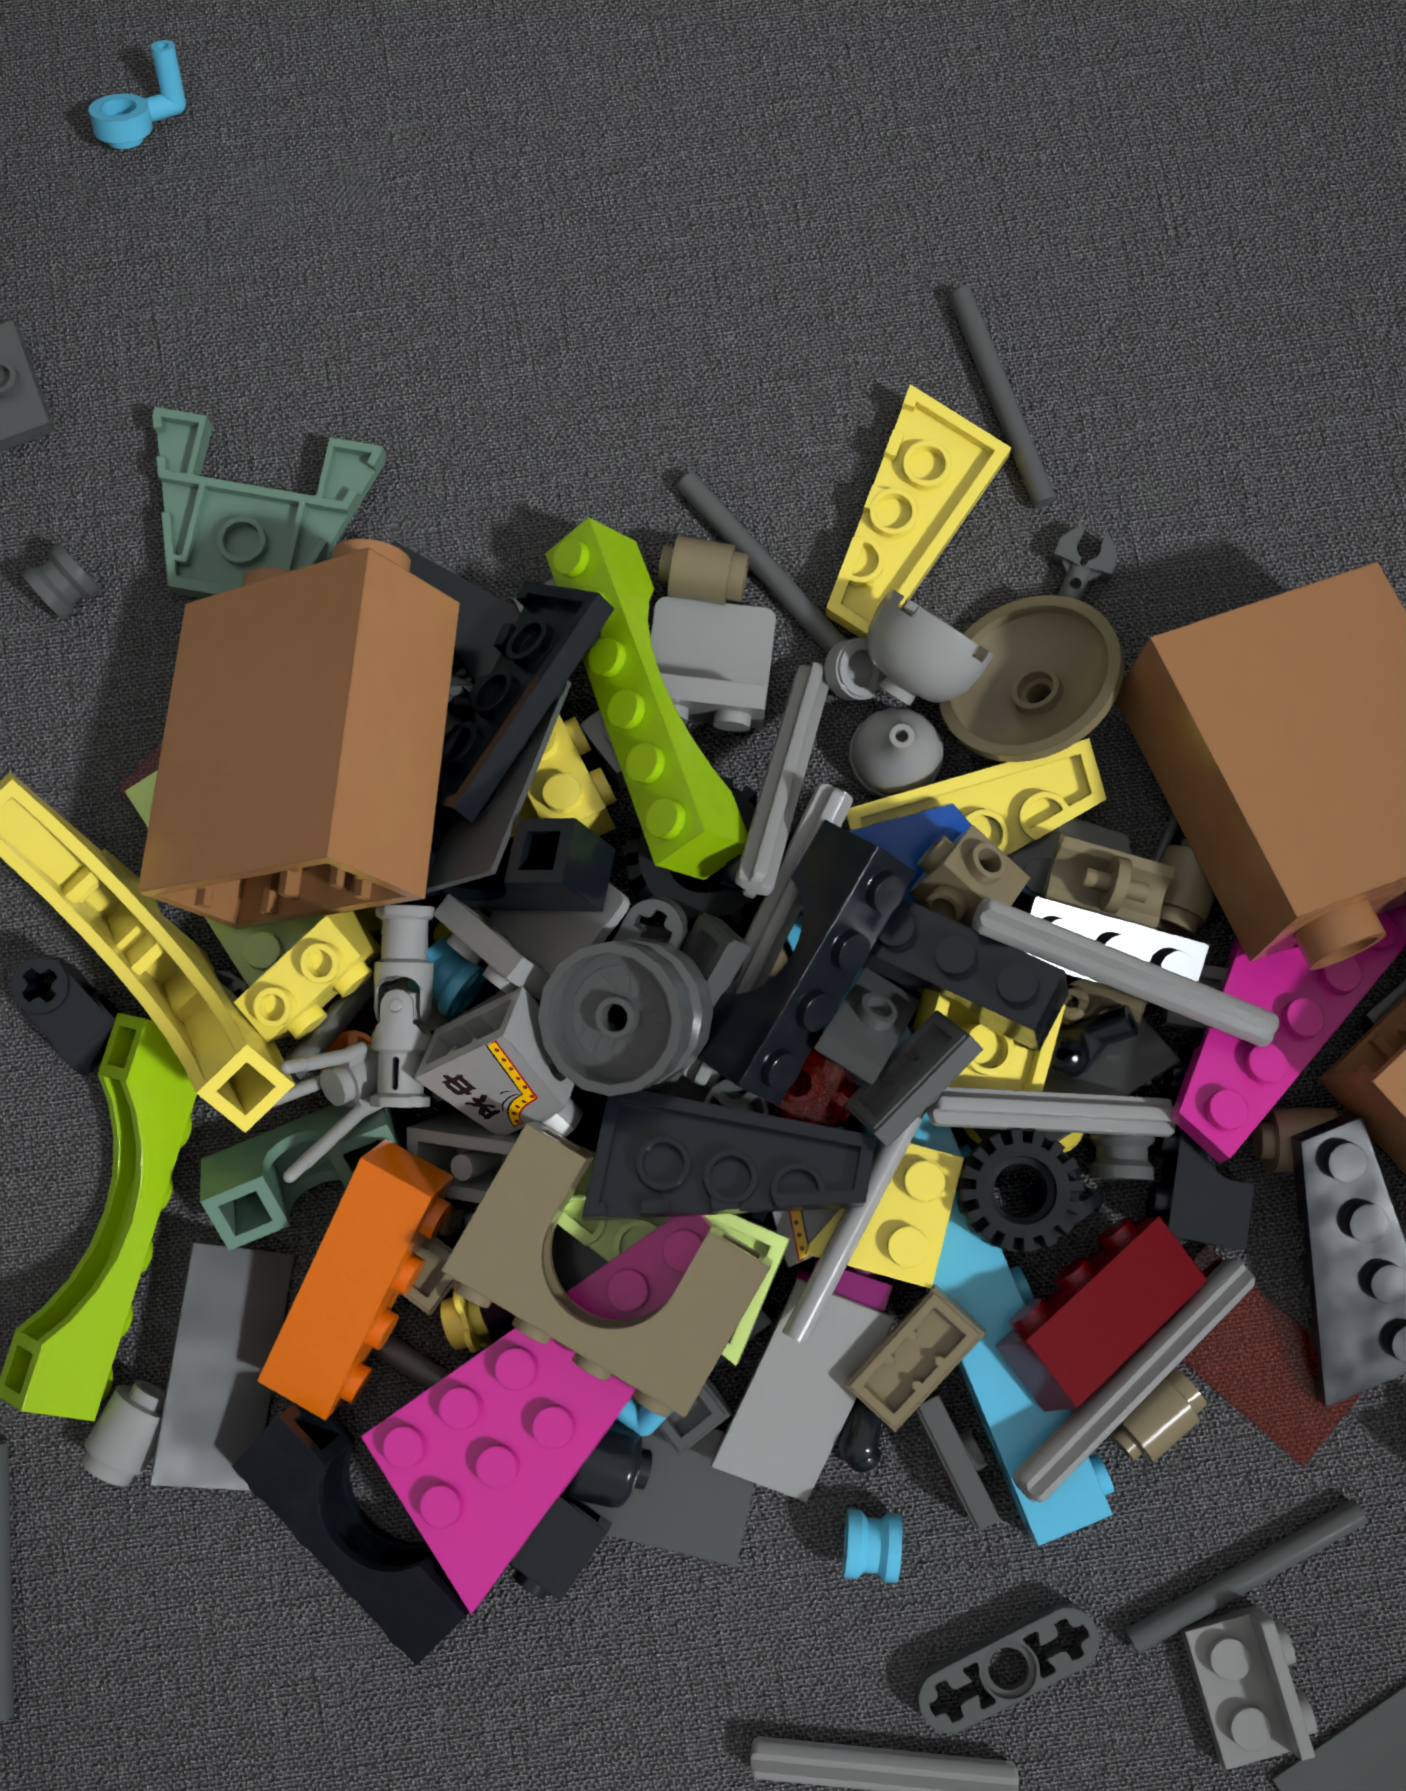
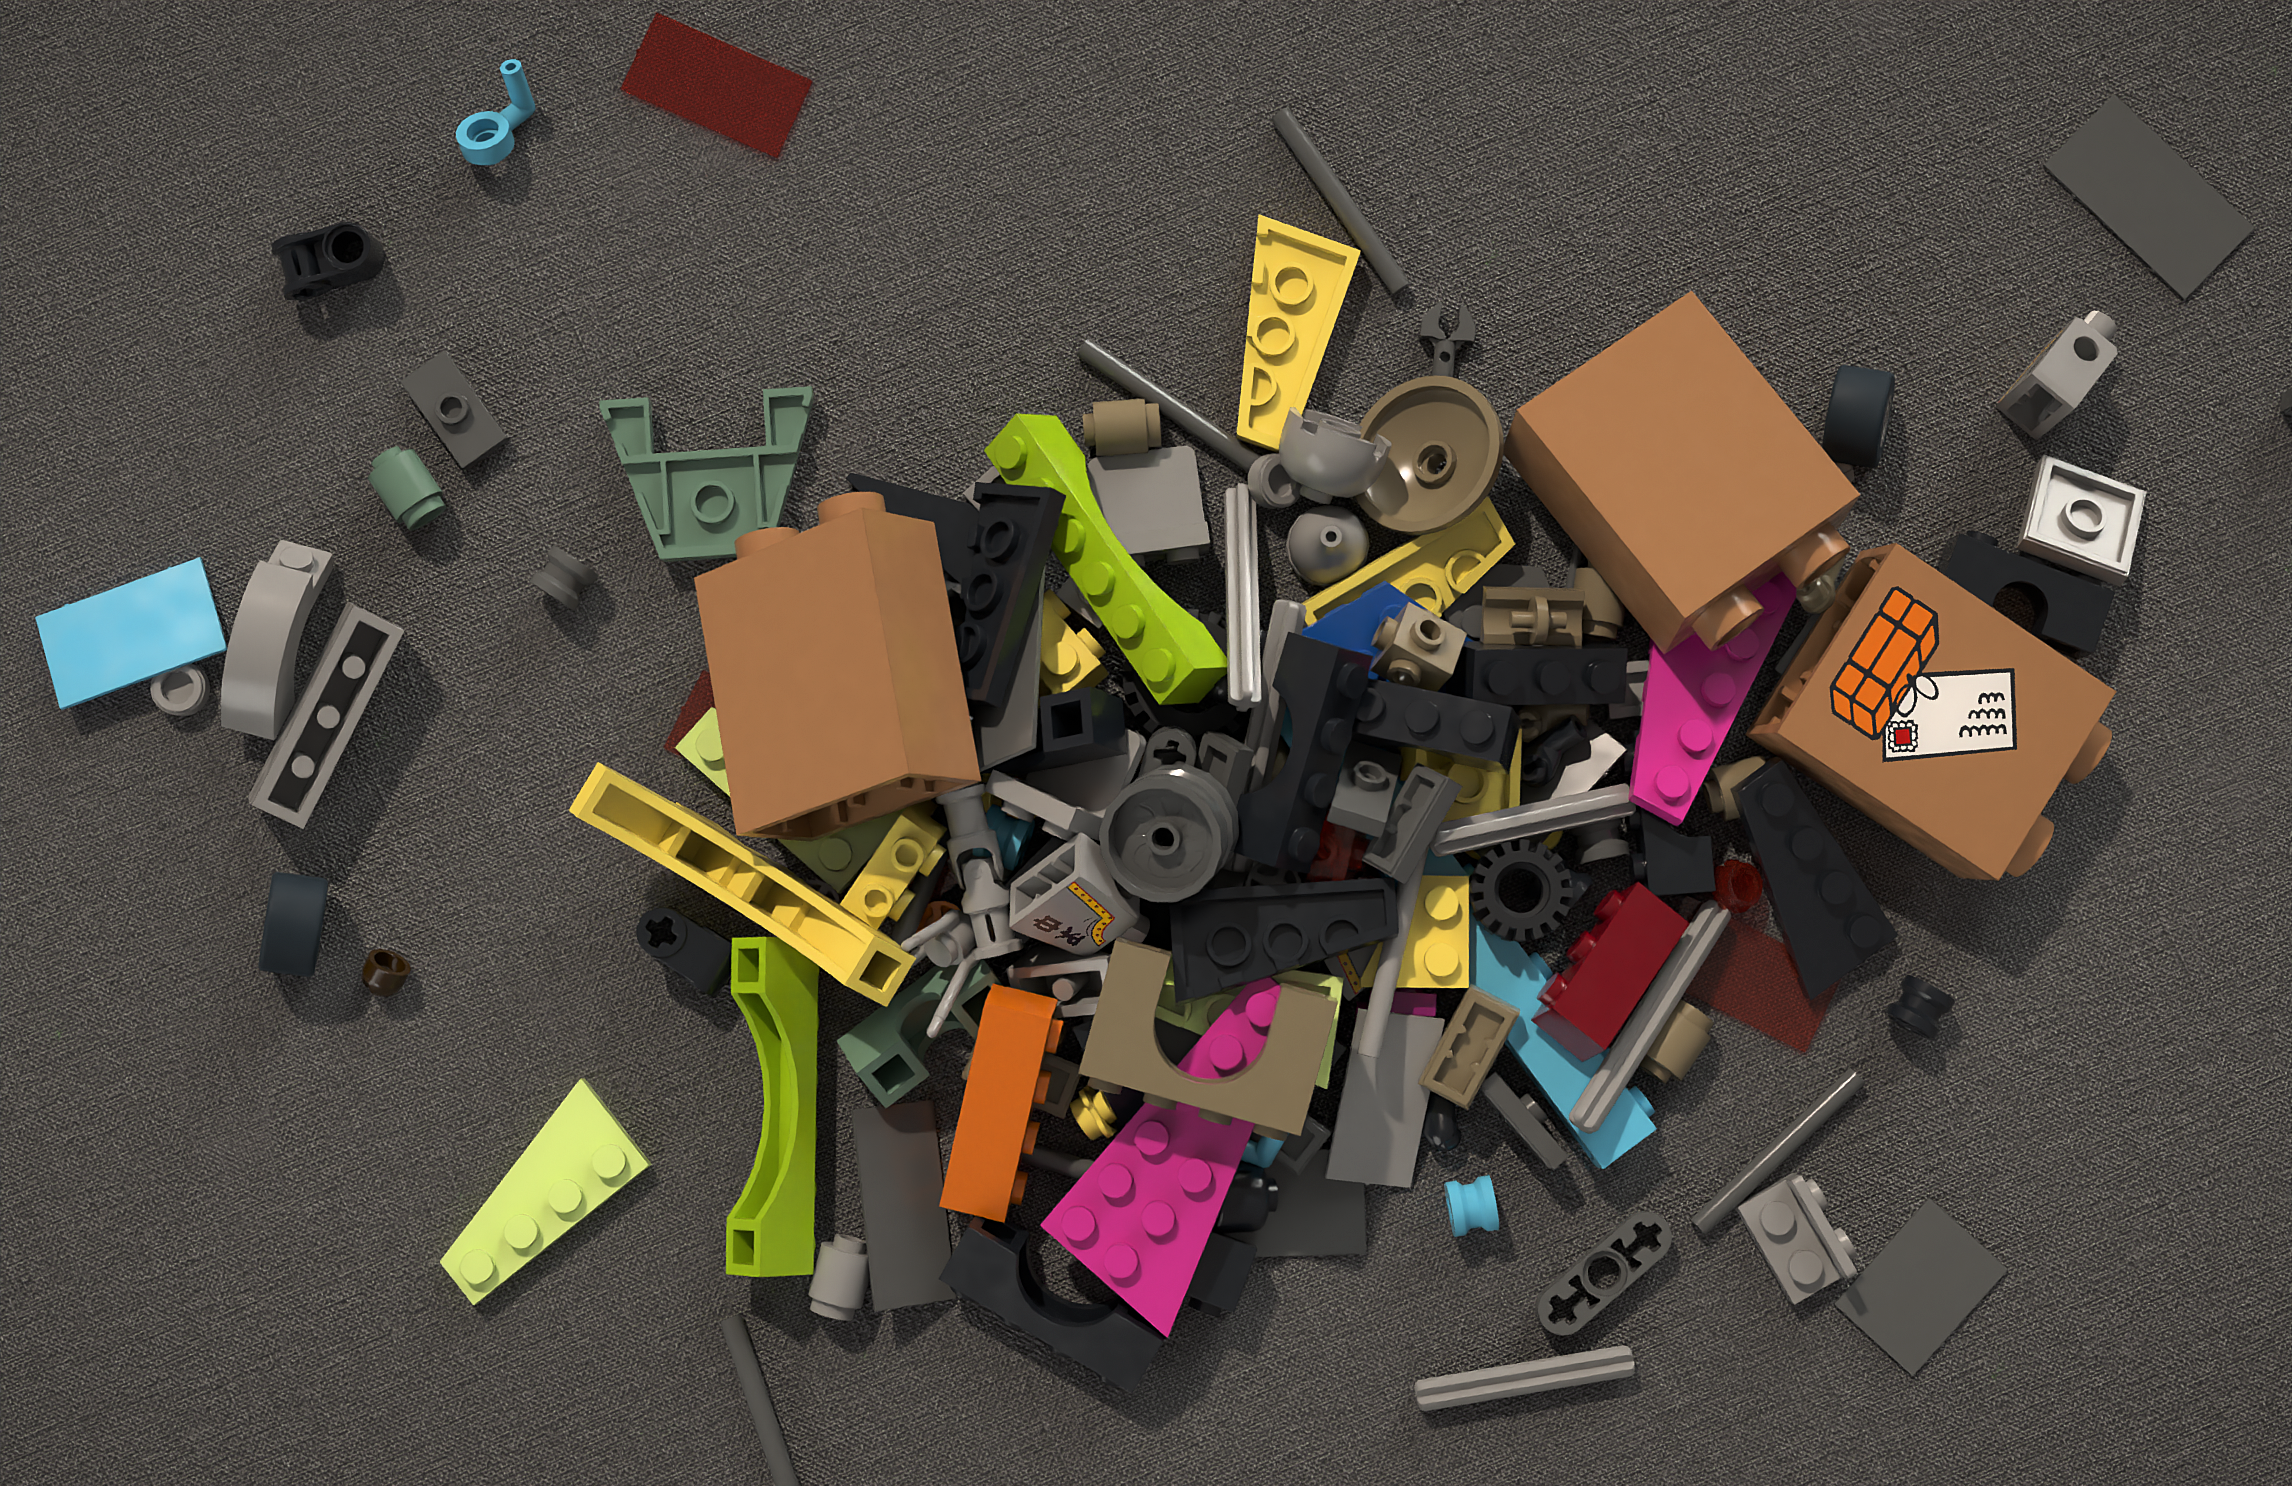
camera: 20 degrees left, 5 degrees up
(378, 129) = (716, 85): none -> clear red piece
(1124, 972) = (1561, 692): light grey axle -> none
(1270, 1251) = (1737, 886): none -> clear red plate

